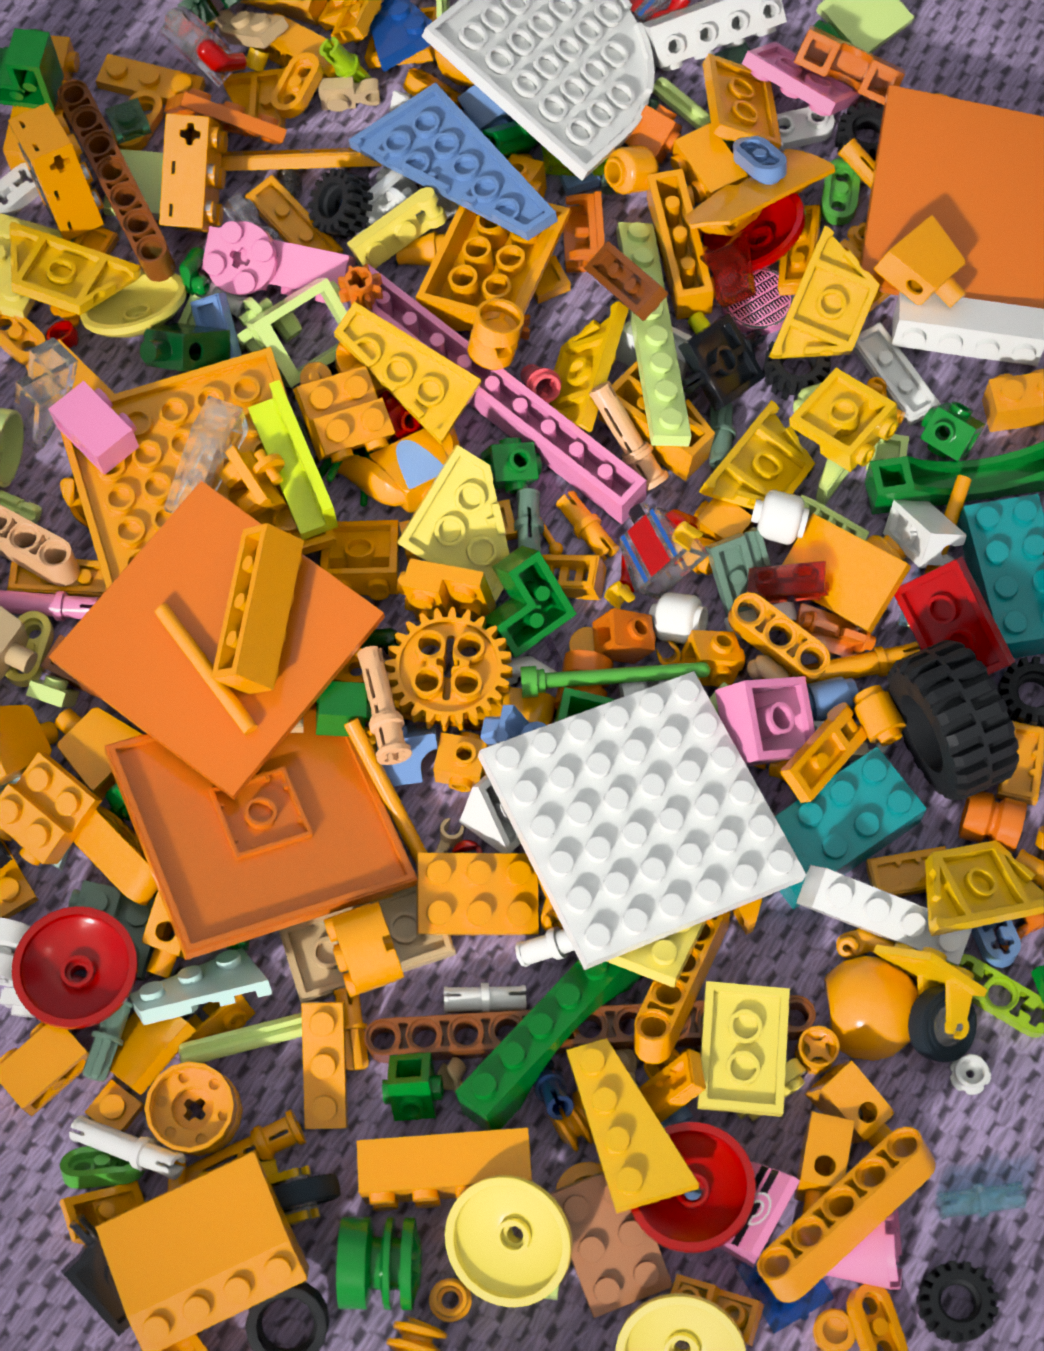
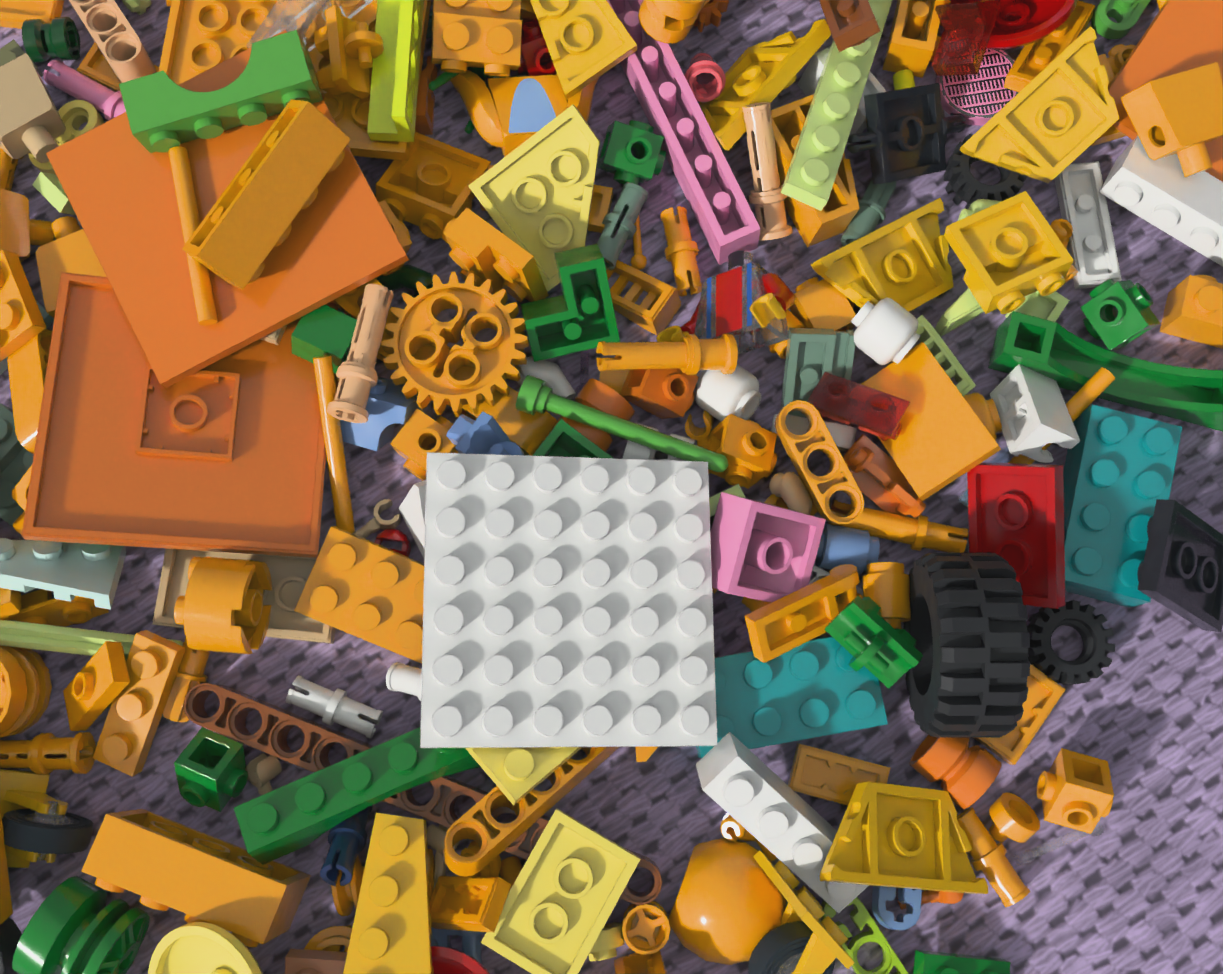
camera: 25 degrees right, 10 degrees up
(145, 580) = (169, 115): none -> bright green arch
(284, 1065) = (96, 686): none -> light orange plate
(637, 598) = (688, 354): none -> light orange pin
(885, 748) = (873, 641): none -> green hips

